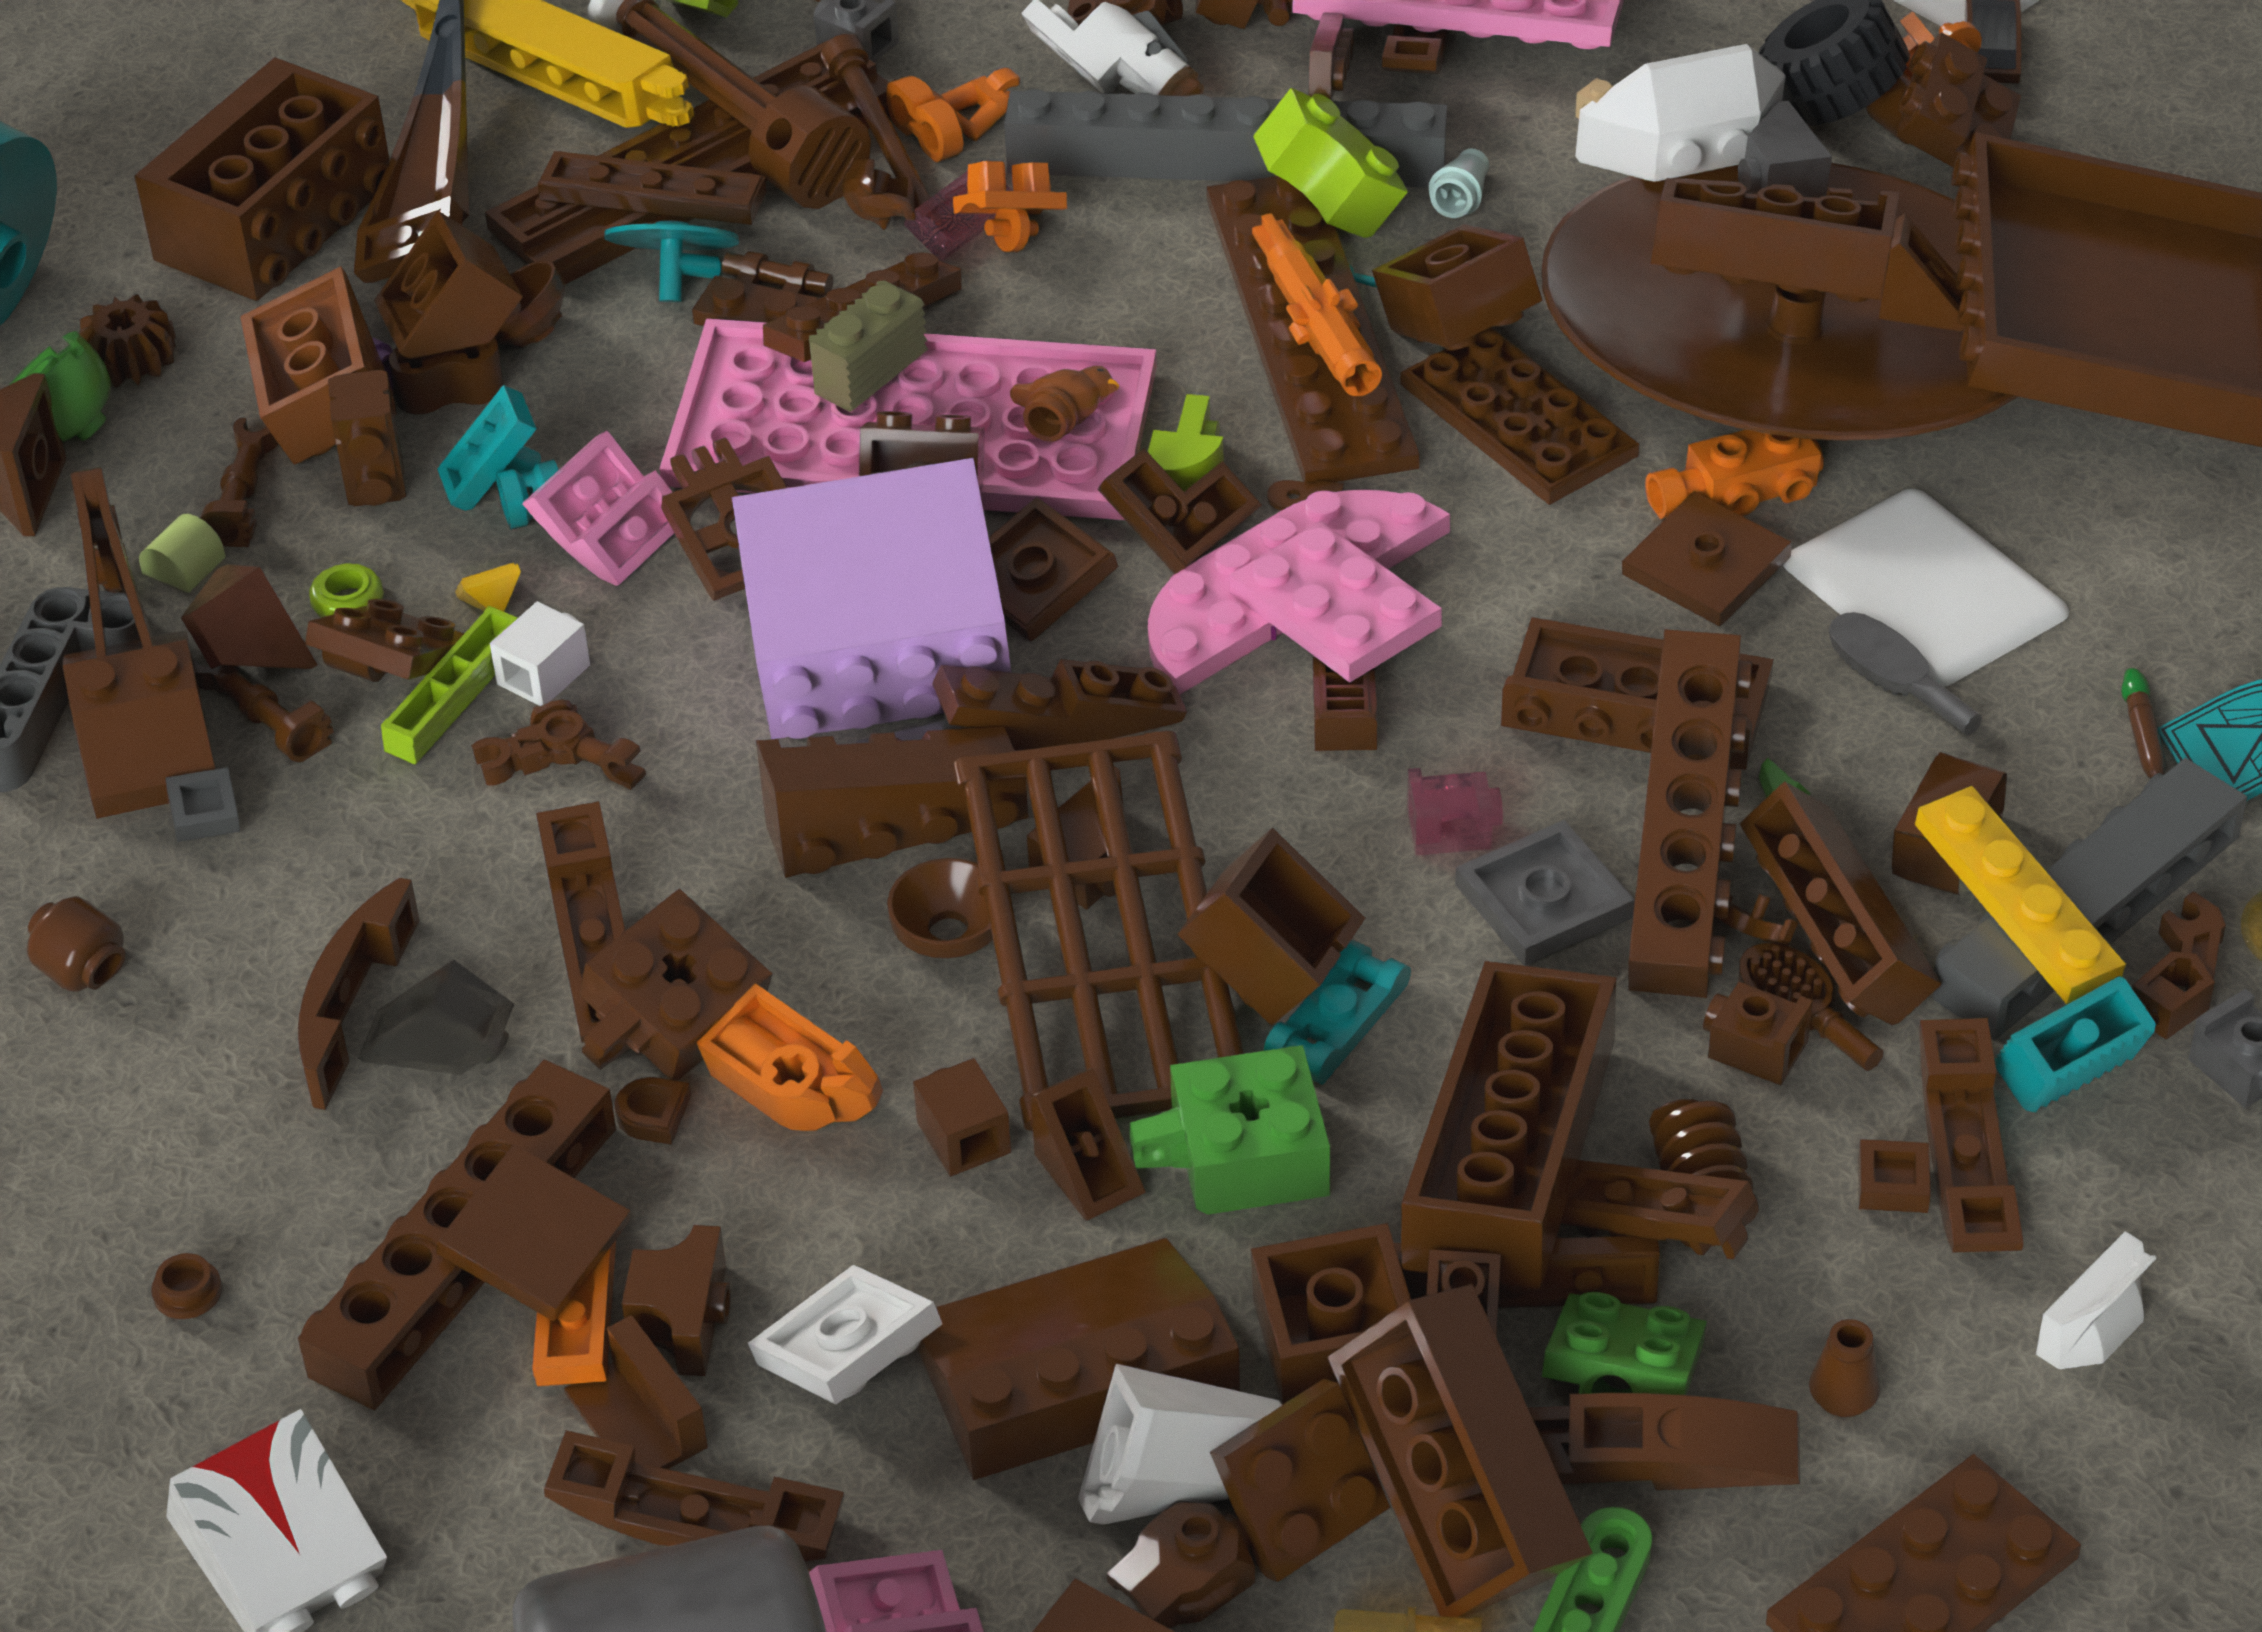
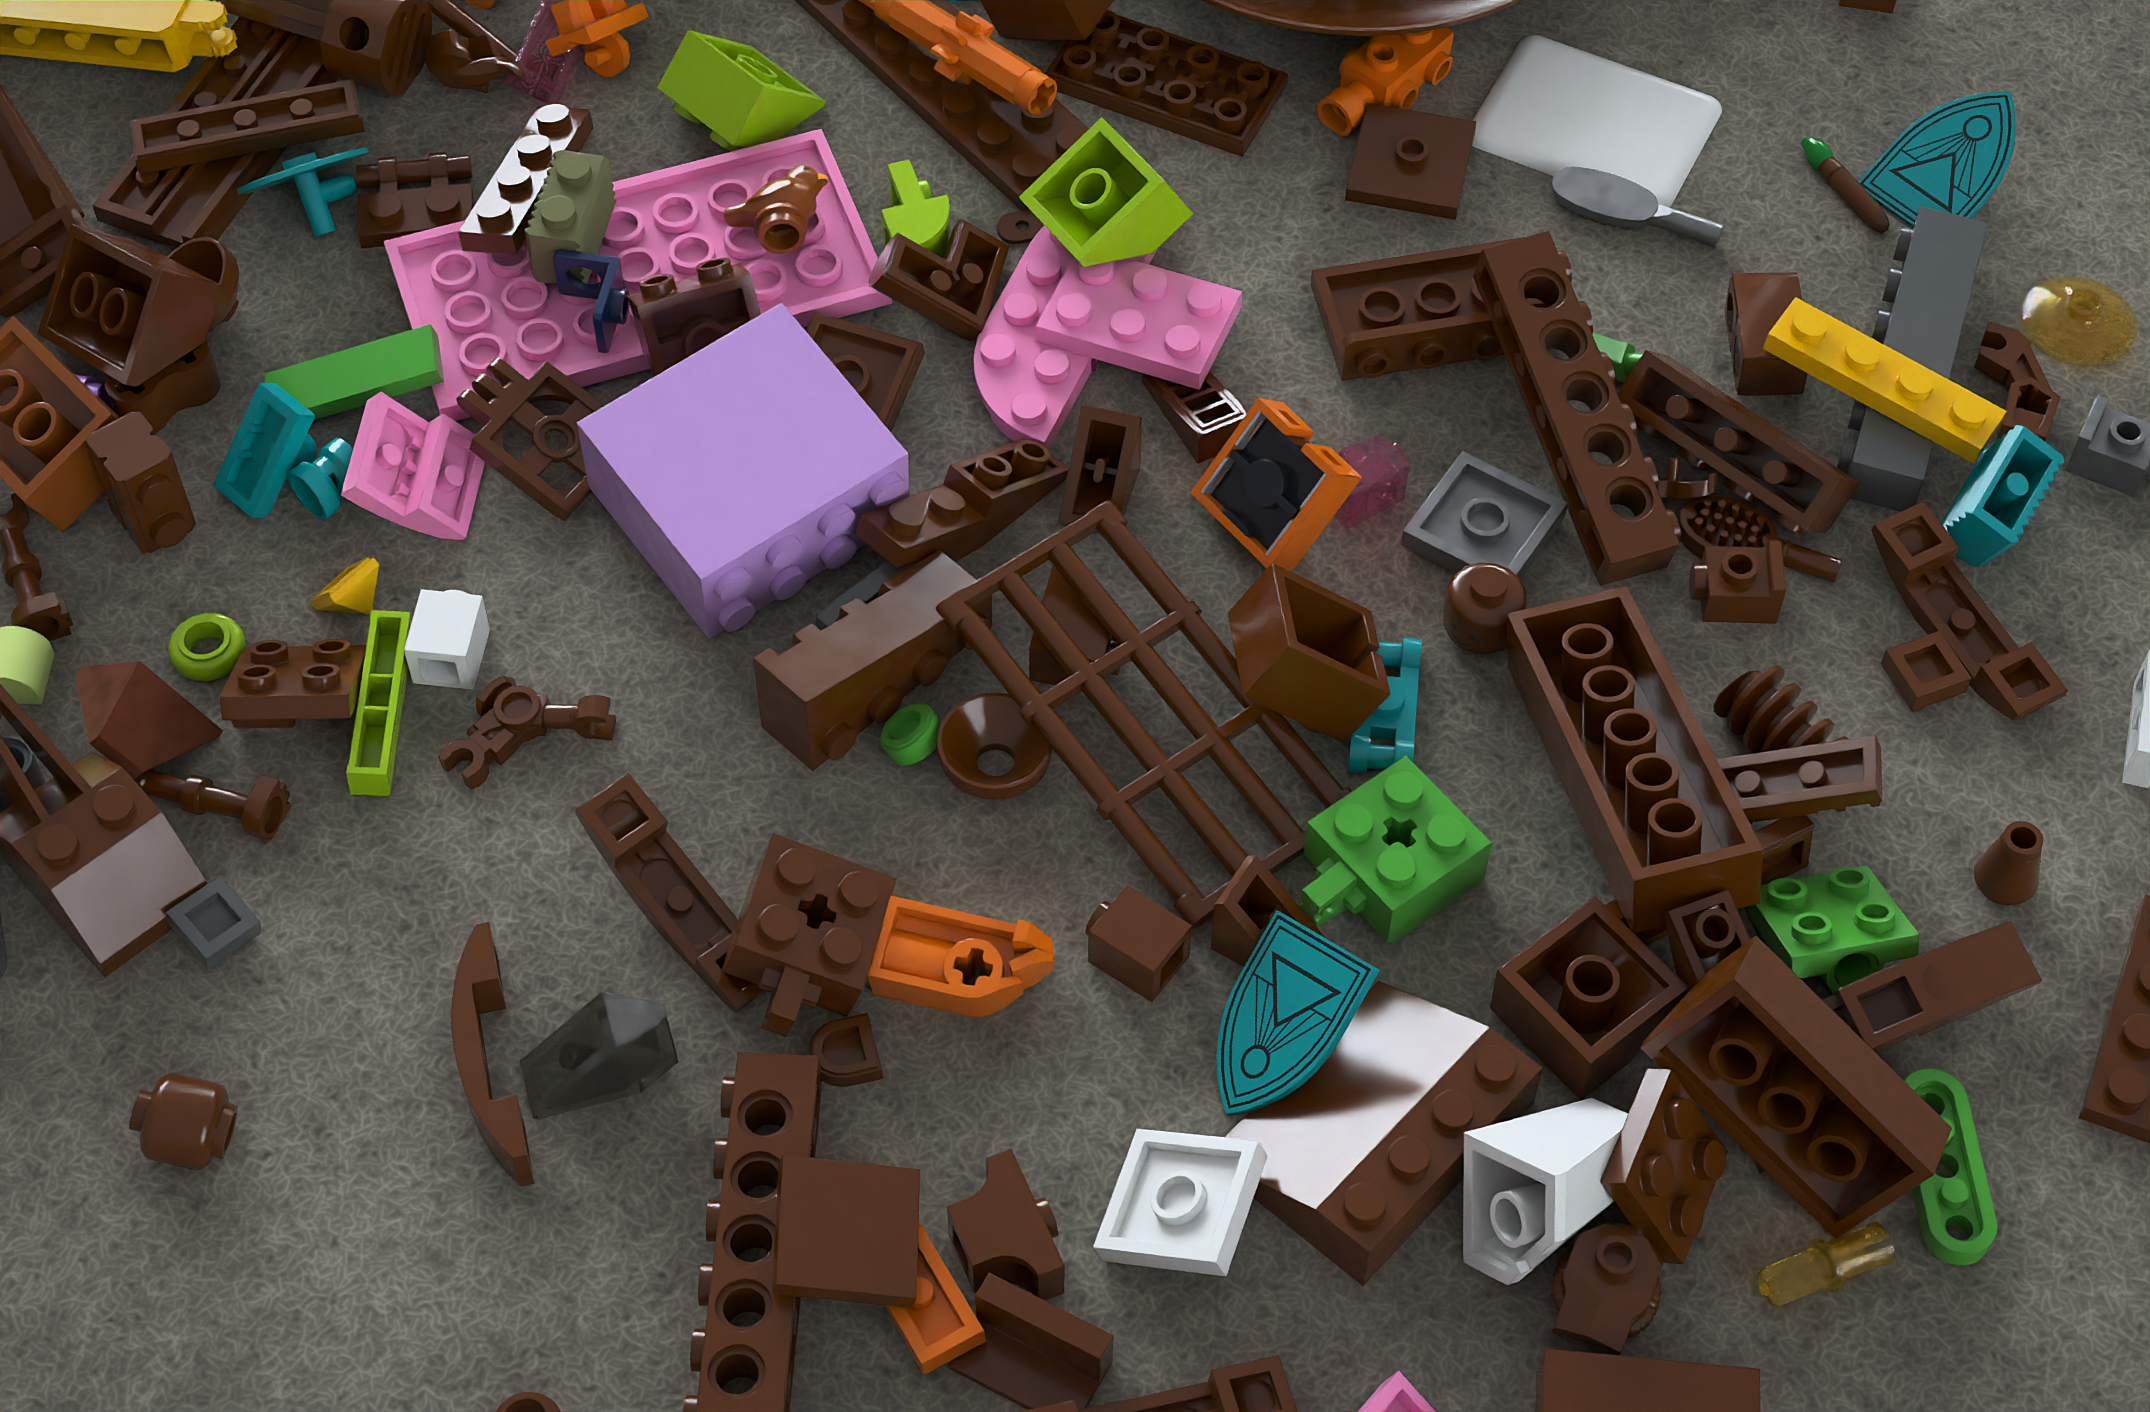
camera: 30 degrees left, 10 degrees up
(628, 417) = (359, 373): none -> bright green tile
(842, 431) = (612, 297): none -> dark blue bracket
(878, 874) = (910, 734): none -> bright green tile
(1043, 1219) = (1286, 1014): none -> teal shield
(1103, 293) = (735, 91): none -> lime slope
(1214, 714) = (1102, 462): none -> reddish brown slope
(1351, 781) = (1275, 485): none -> piece
(1360, 484) = (1105, 200): none -> lime slope
(1471, 942) = (1479, 606): none -> reddish brown head

